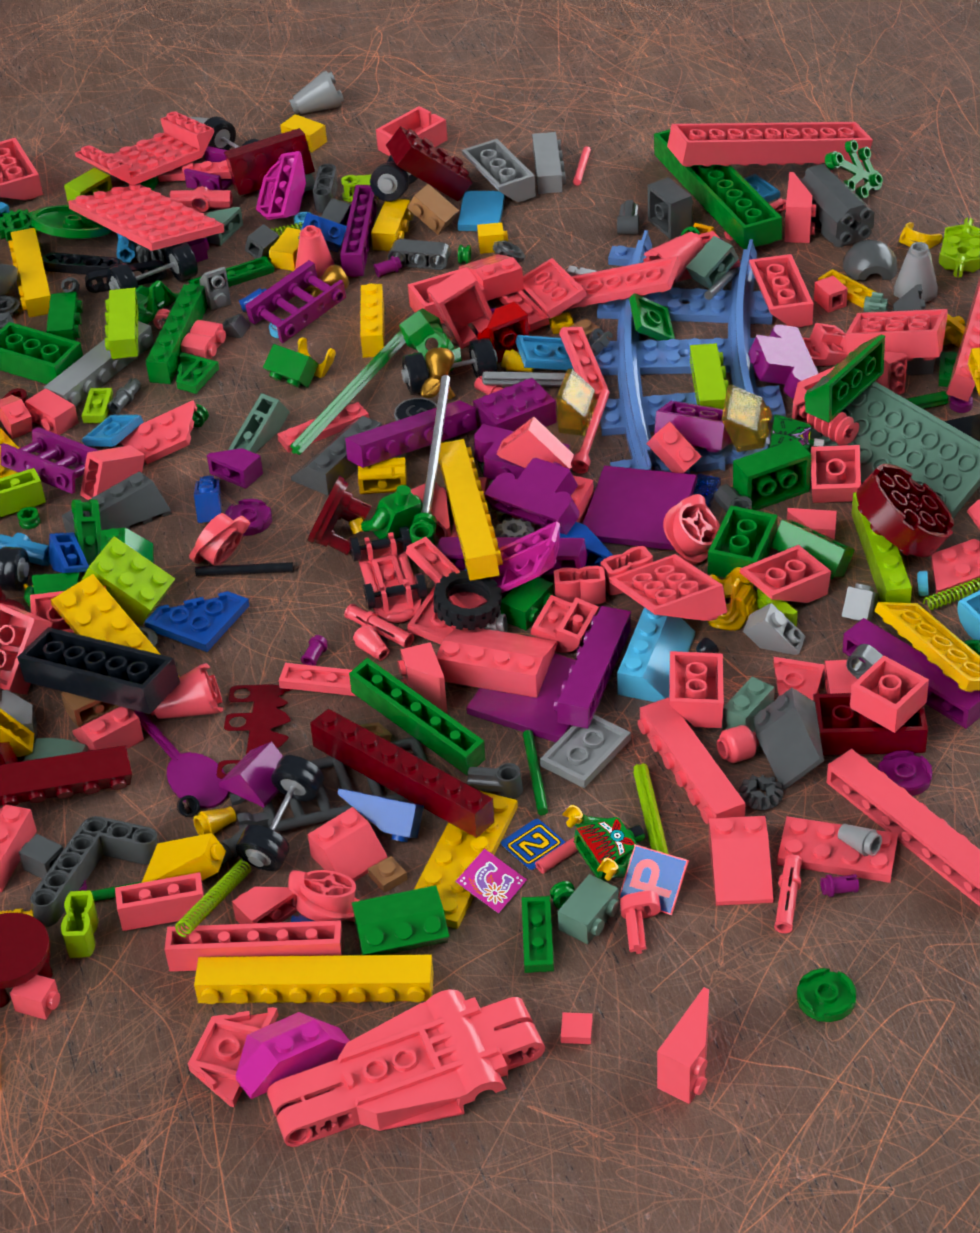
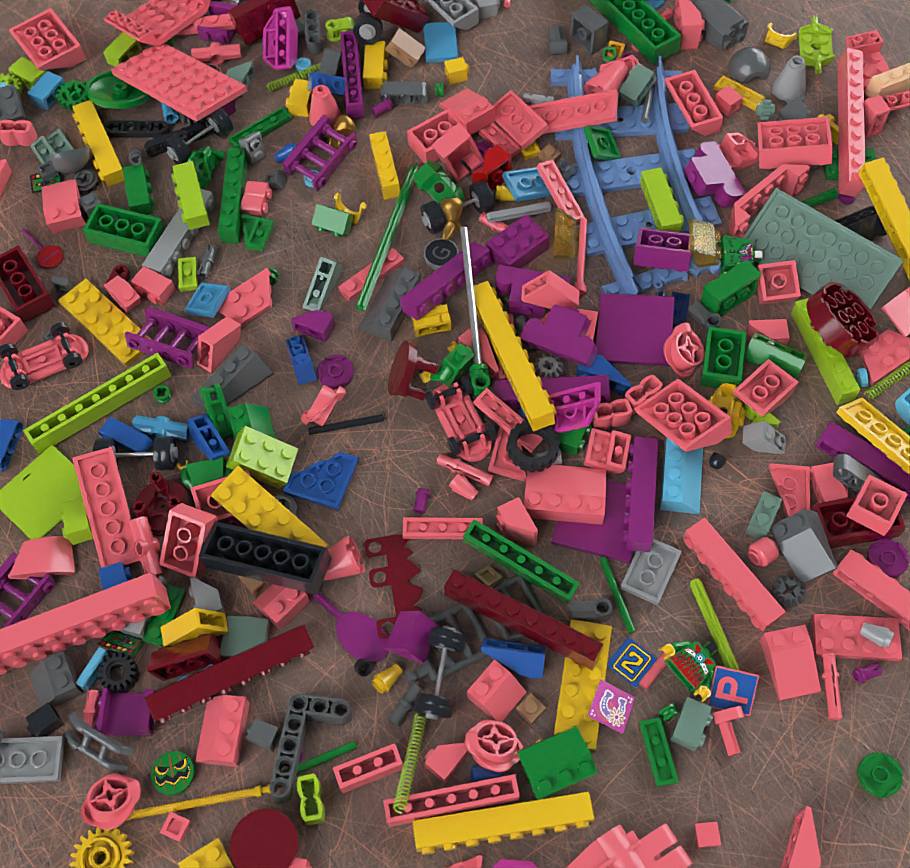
camera: 10 degrees left, 20 degrees up
(162, 313) = (217, 180): coral bush -> none
(186, 857) = (376, 730): yellow slope -> none
(260, 241) = (277, 94): dark grey brick -> none
(508, 249) = (473, 83): dark grey gear -> none
(673, 449) = (653, 276): coral brick -> none
(697, 687) = (725, 505): coral slope -> none
(840, 429) = (766, 238): coral piece -> none
(846, 380) = (776, 203): green slope -> none
(860, 602) = (821, 404): light grey slope -> none

